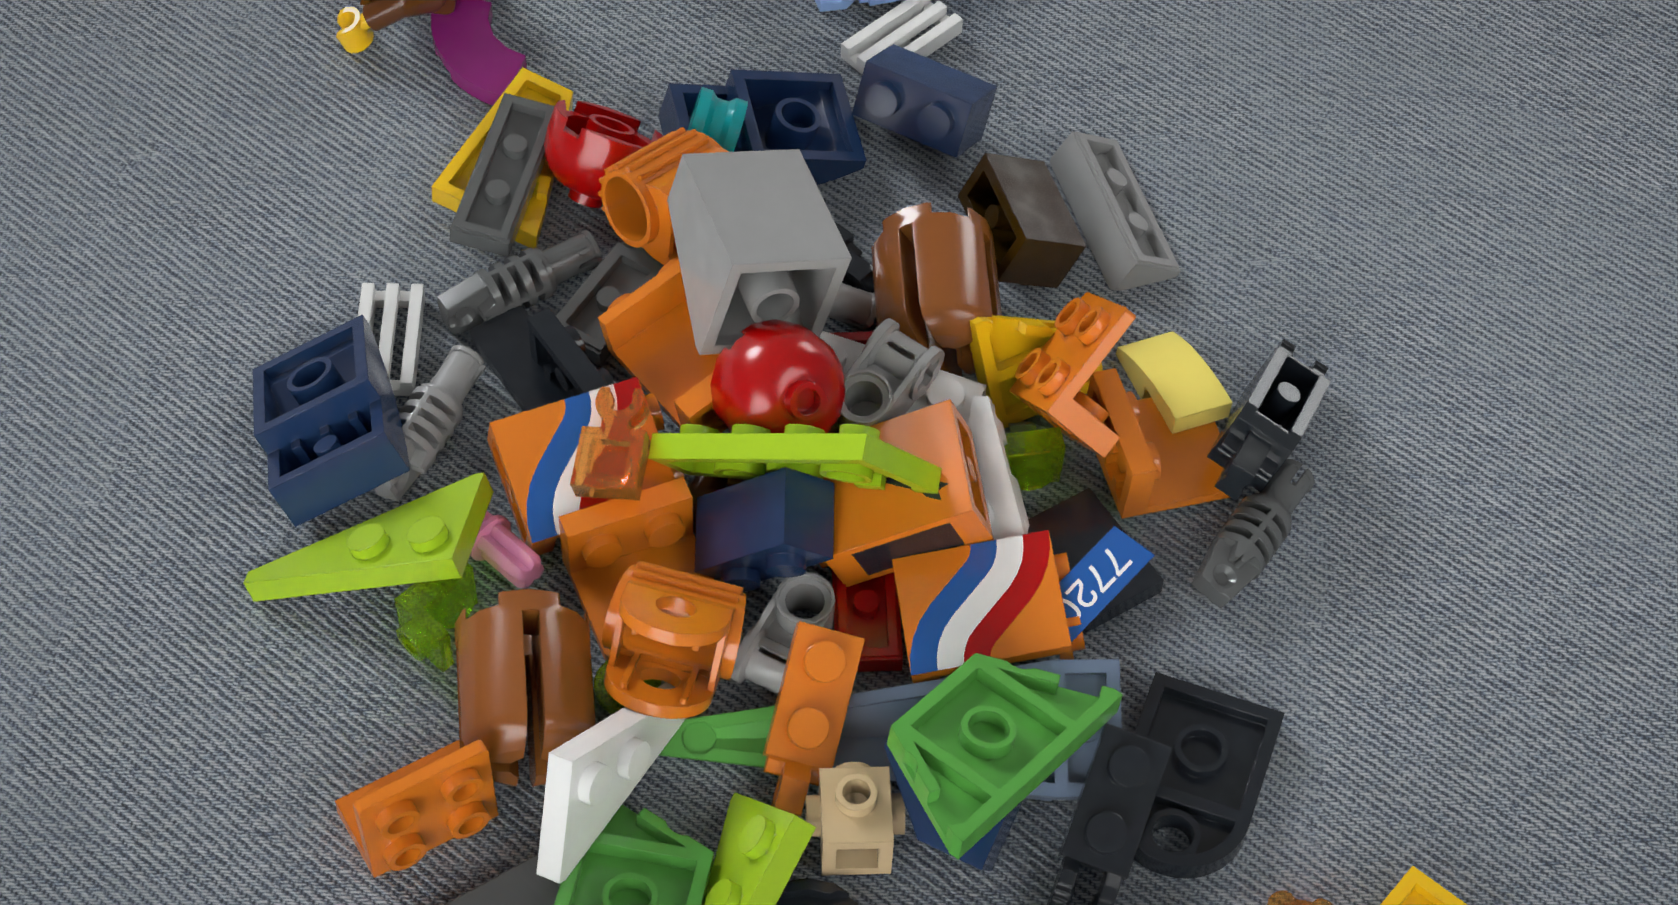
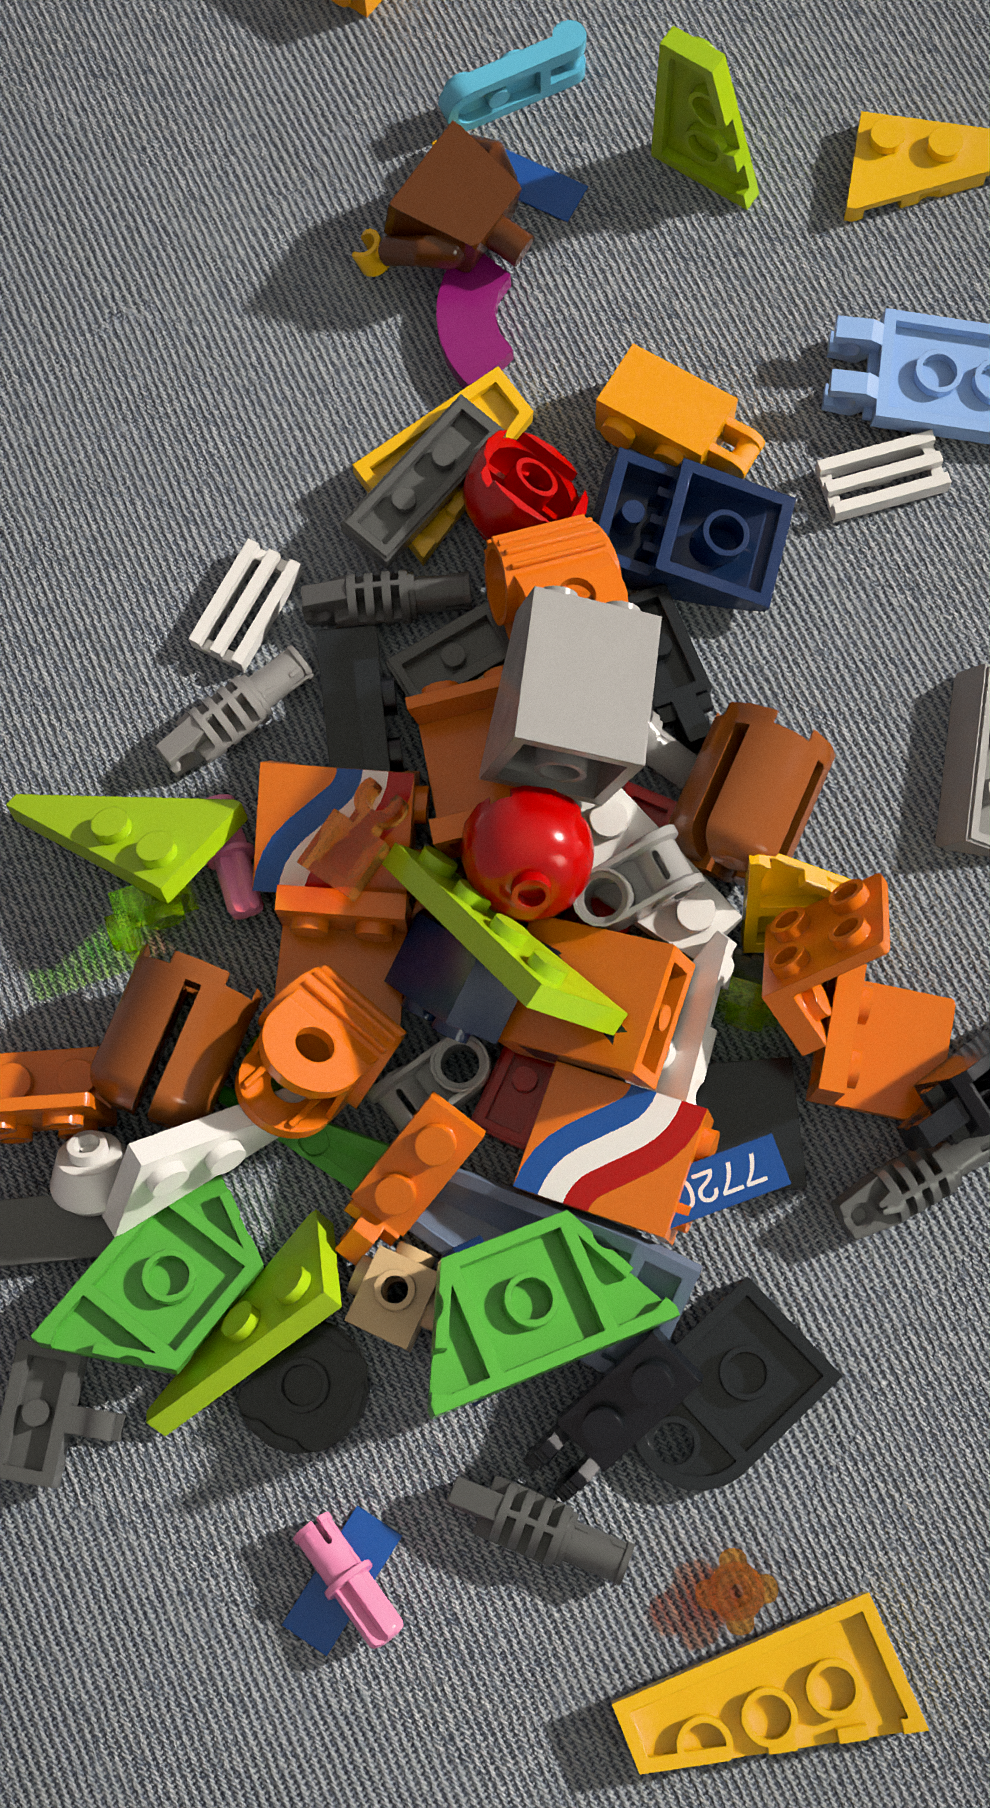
camera: 35 degrees right, 20 degrees up
(328, 422) = (143, 678): dark blue slope -> none
(501, 843) = (86, 1172): none -> white cone
(697, 48) = (673, 416): none -> light orange brick
(718, 118) = (634, 516): teal wheel -> none
(924, 100) = (857, 566): dark blue brick -> none
(1028, 219) = (879, 744): dark brown brick -> none
(1175, 380) = (935, 979): light yellow slope -> none

